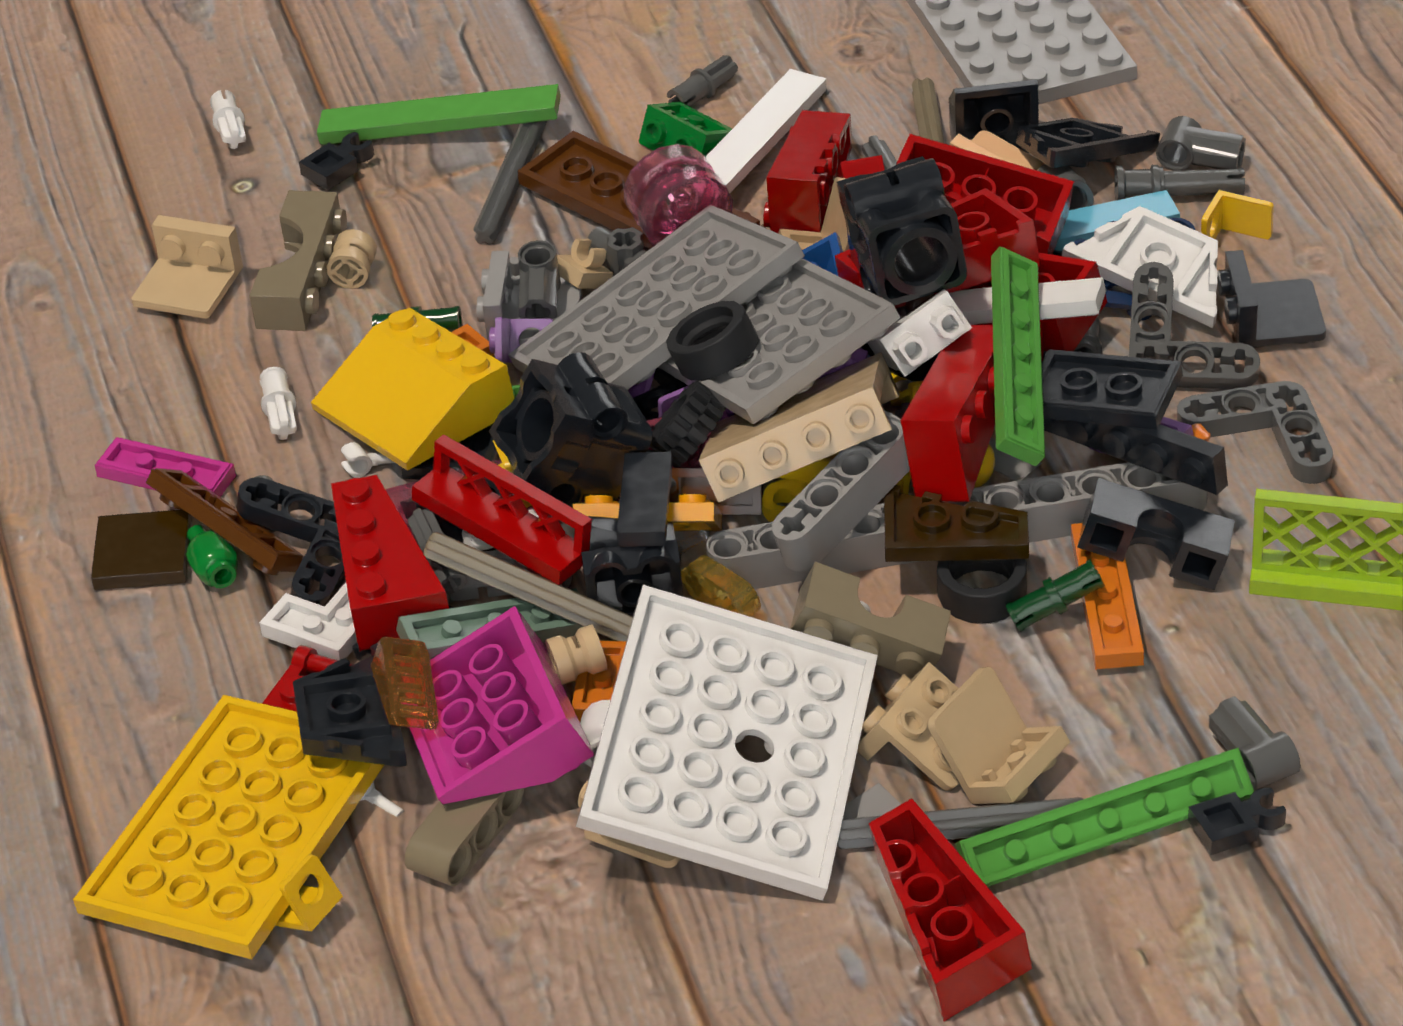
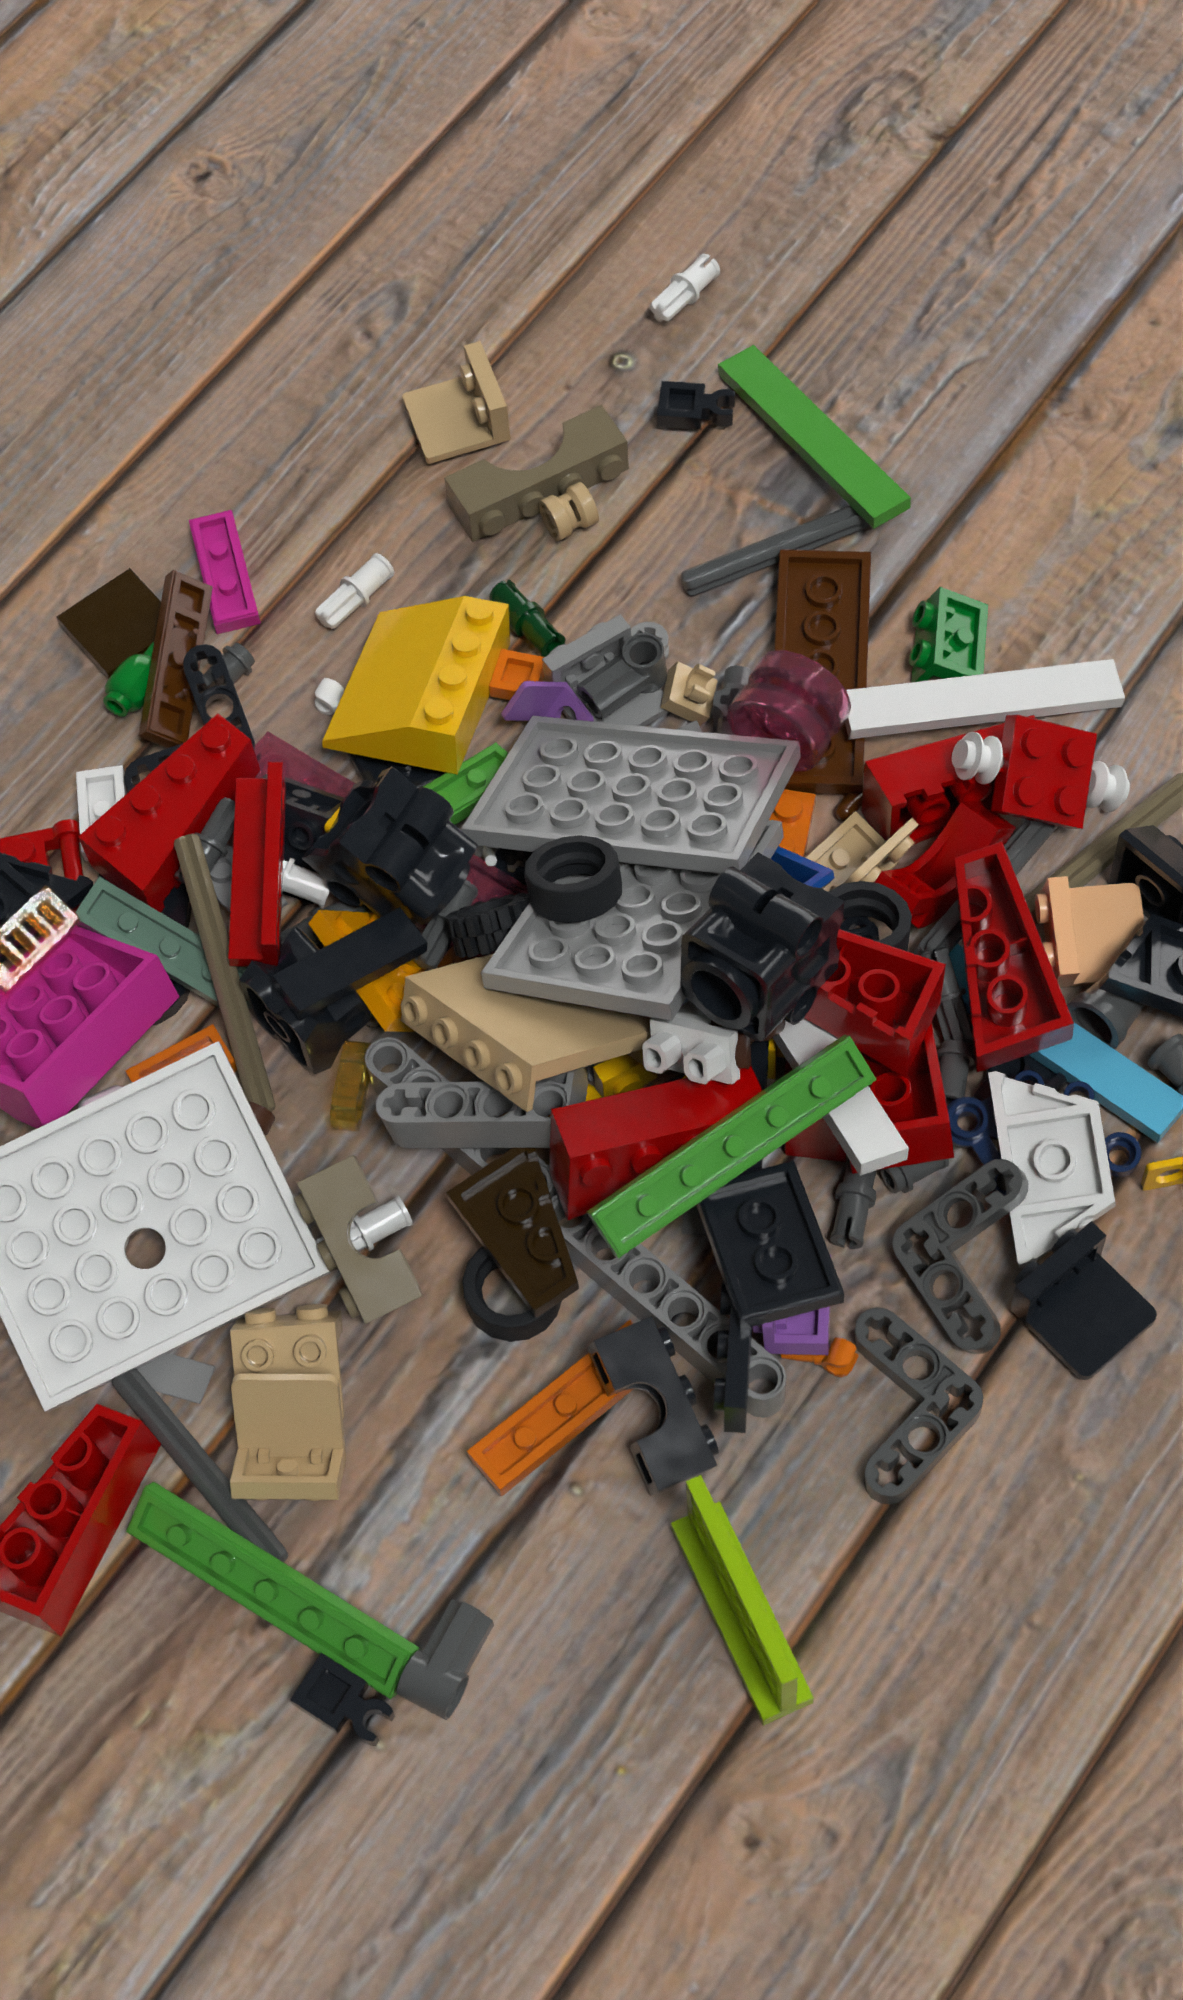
camera: 55 degrees right, 20 degrees up
(576, 654) = (163, 1032): tan wheel -> none
(704, 81) = (1034, 603): dark grey axle -> none
(855, 113) = (1042, 771): none -> red plate
(1055, 595) = (520, 1368): dark green pin -> none

